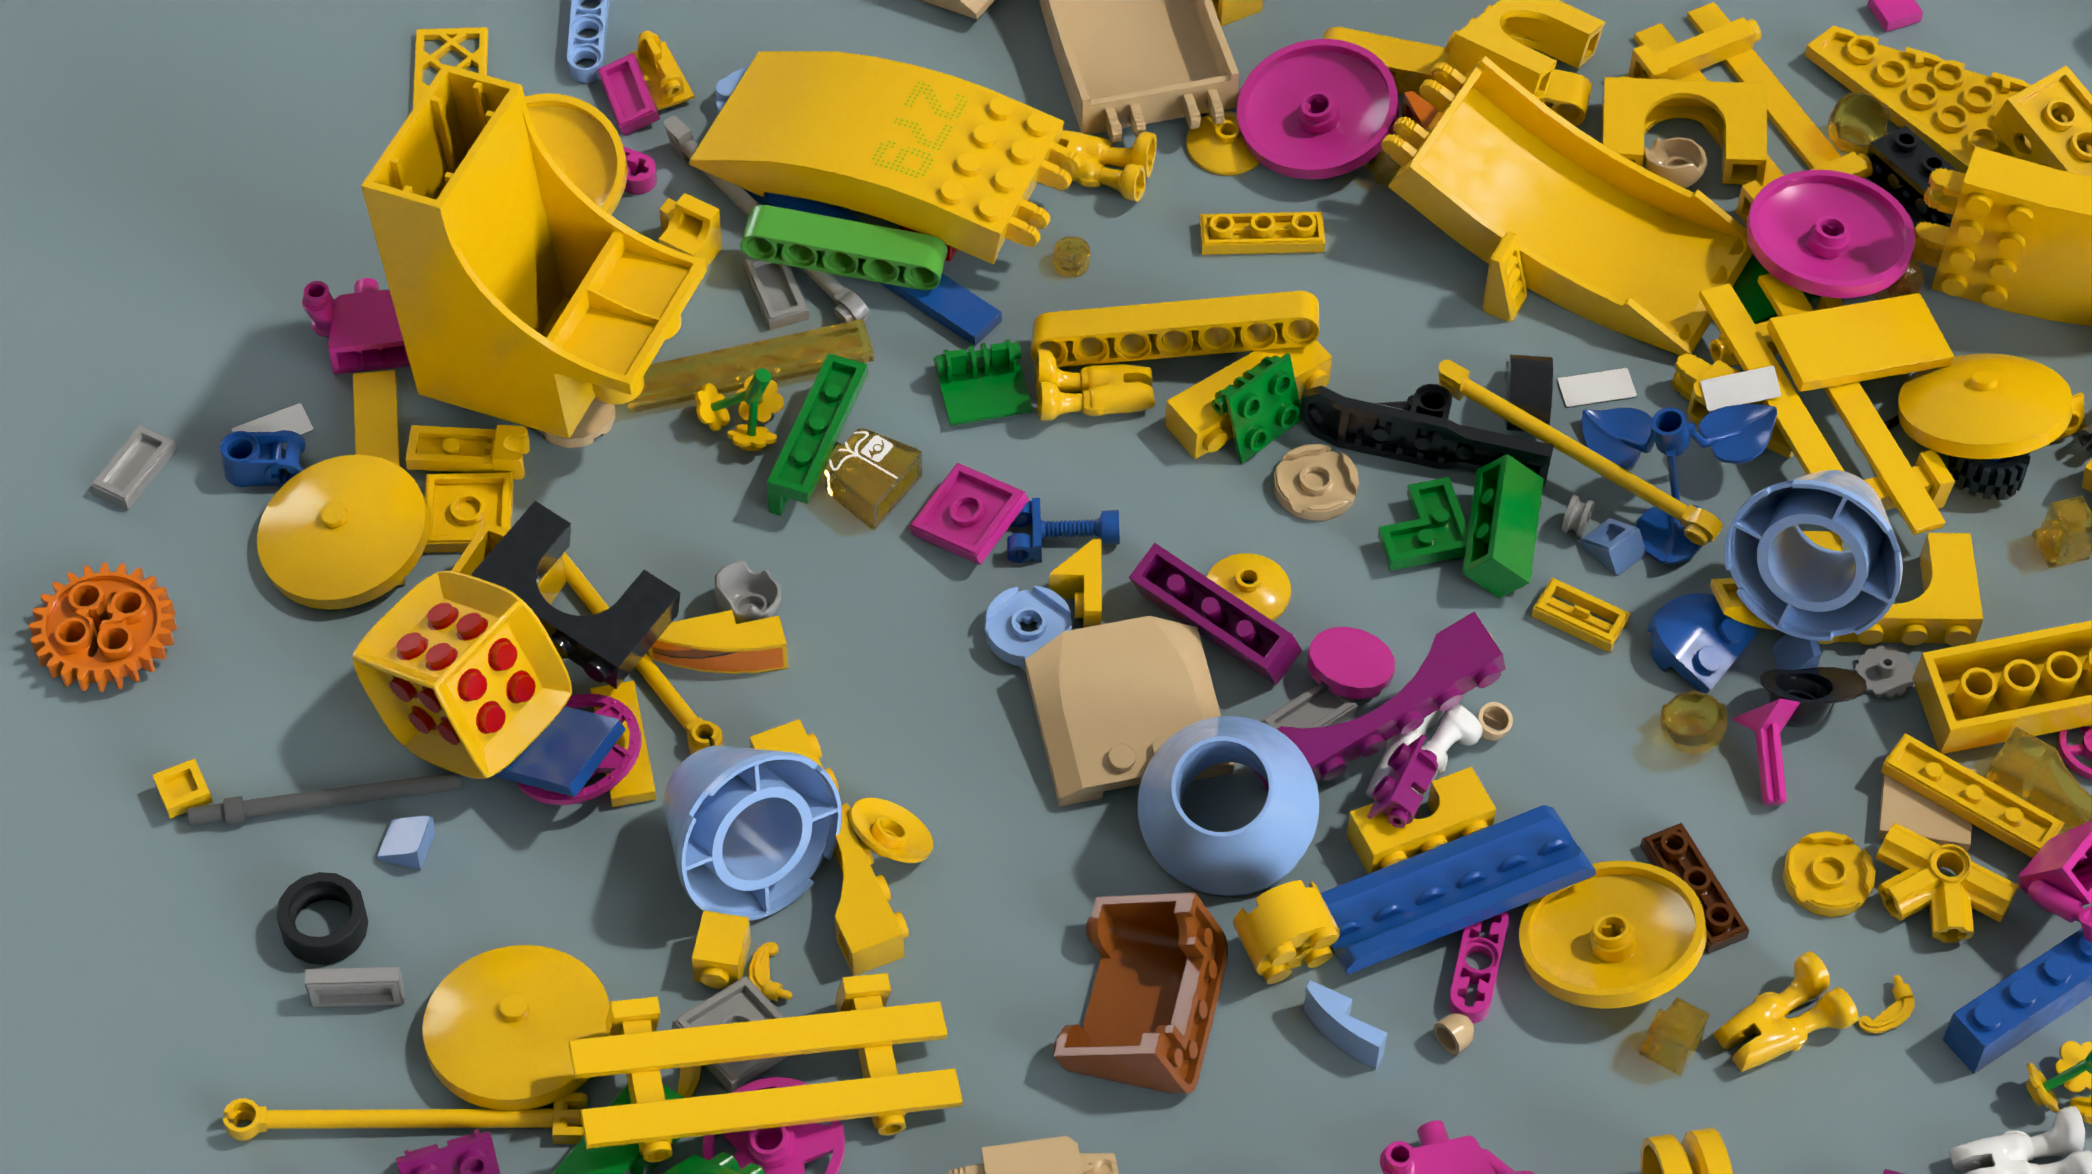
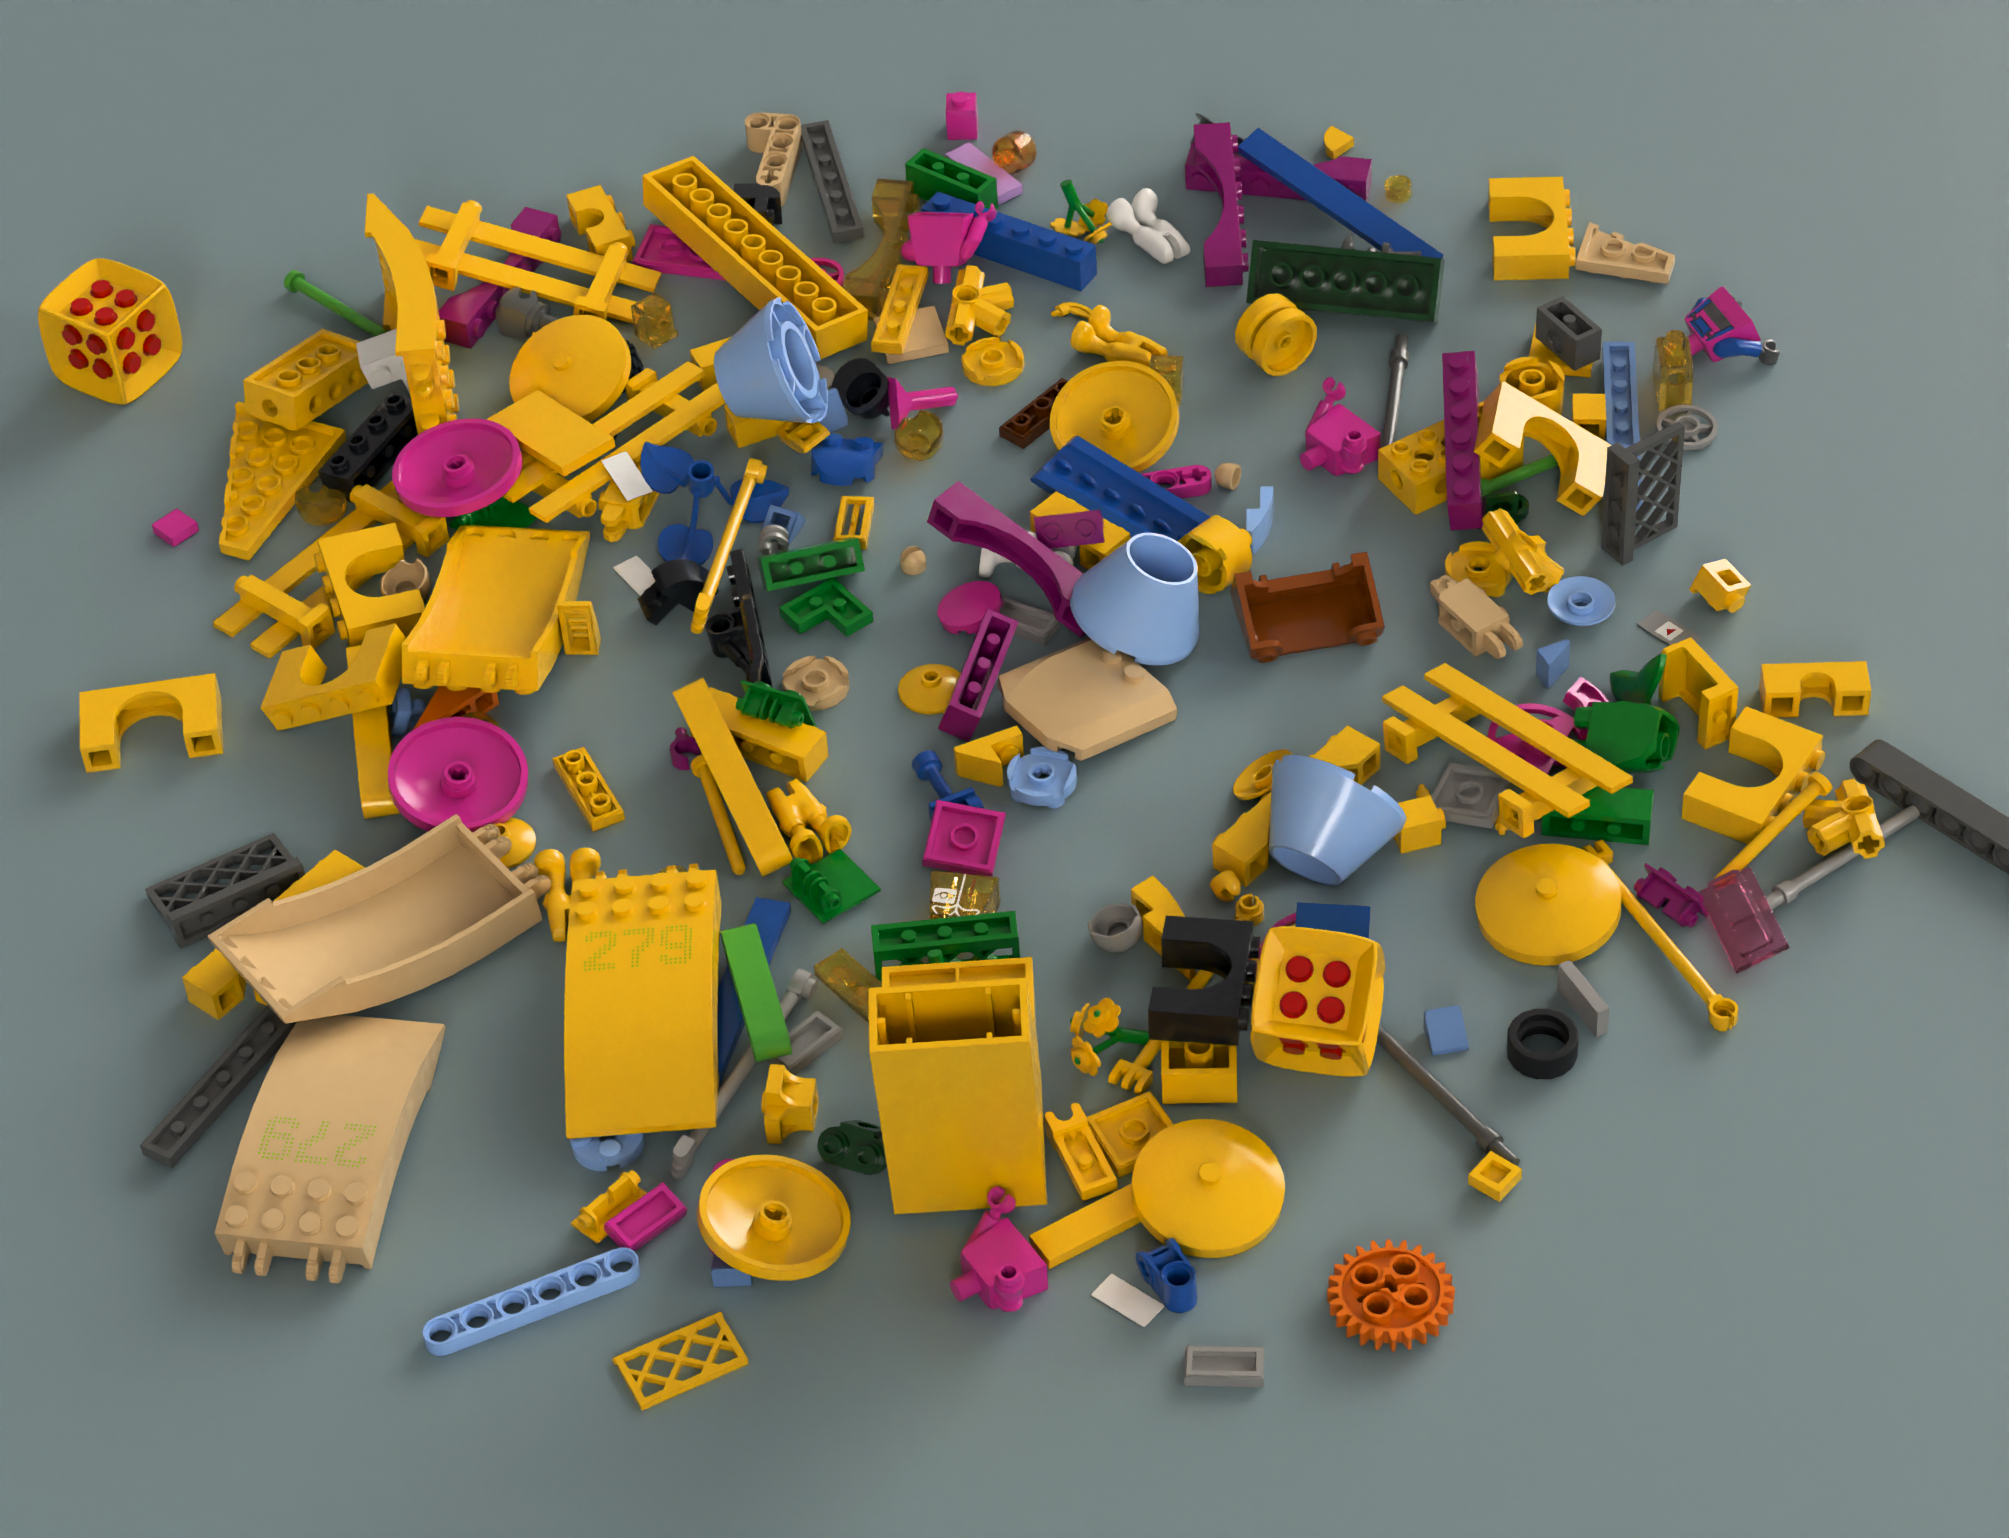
camera: 110 degrees left, 10 degrees down
(594, 503) = (1099, 1020): none -> yellow plant
(746, 725) = (1226, 885): none -> yellow hinge

